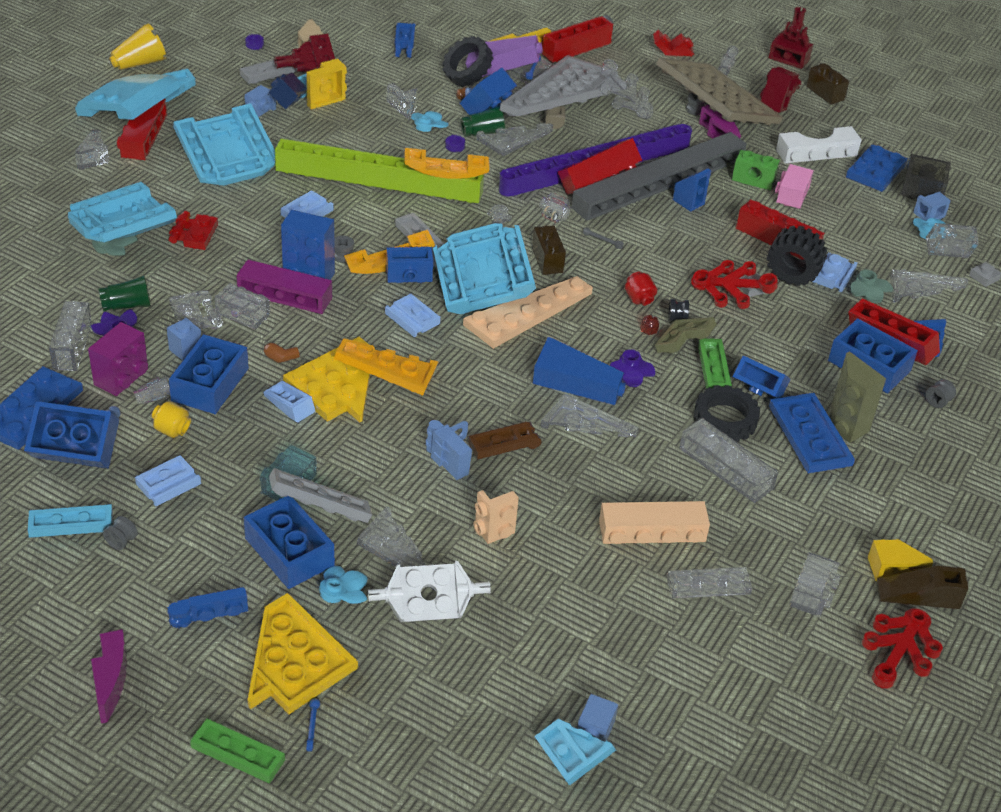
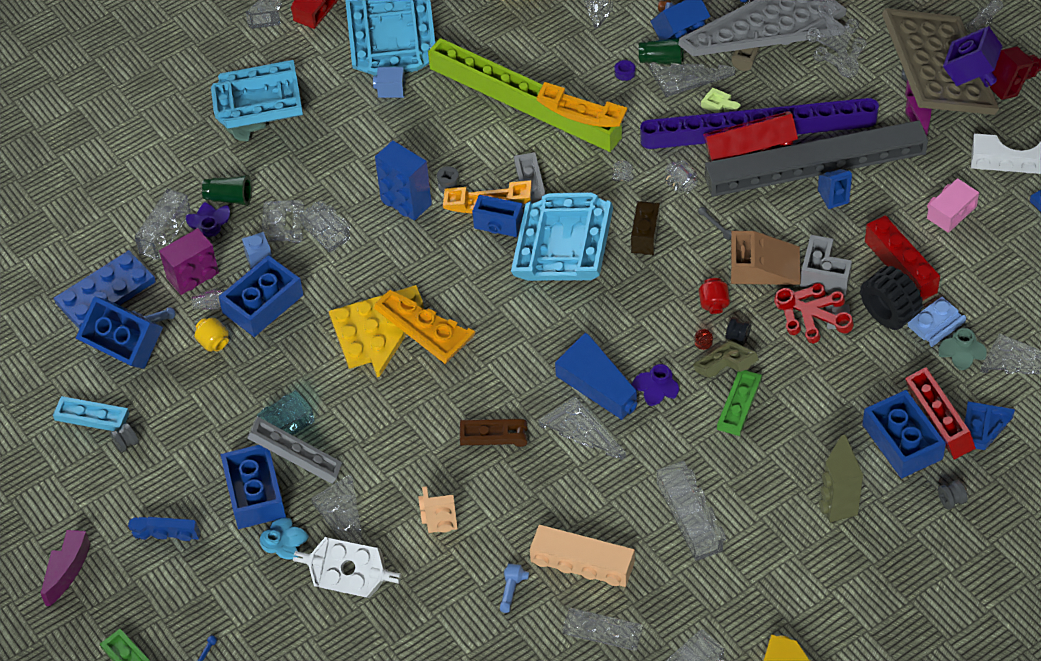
camera: 30 degrees right, 10 degrees up
(168, 480) = (184, 396): light blue plate -> none
(199, 233) = (327, 128): red plate -> none
(245, 184) = (390, 82): none -> medium blue brick
(280, 354) = (335, 286): dark orange arm -> none
(286, 286) = (373, 212): magenta brick -> none
(292, 402) = (325, 340): light blue slope -> none
(295, 657) = (212, 594): yellow wing -> none
(309, 203) = (436, 124): light blue plate -> none
(412, 315) = (477, 273): light blue plate -> none
(426, 121) = (611, 35): medium azure plate -> none
(448, 448) = (432, 427): medium blue piece -> none
(514, 317) = (575, 297): light nougat wing -> none
(550, 149) = (718, 101): none -> yellowish green plate
(597, 557) = (513, 575): none -> medium blue piece
(663, 254) = (763, 259): none -> medium nougat slope
(718, 246) = (823, 268): none -> light grey brick
(733, 398) = (724, 438): black tyre -> none
(752, 78) = (973, 57): none -> dark purple brick
(761, 378) = (772, 430): blue brick -> none
(762, 177) = (923, 174): bright green brick -> none
(811, 433) = (791, 502): blue plate -> none

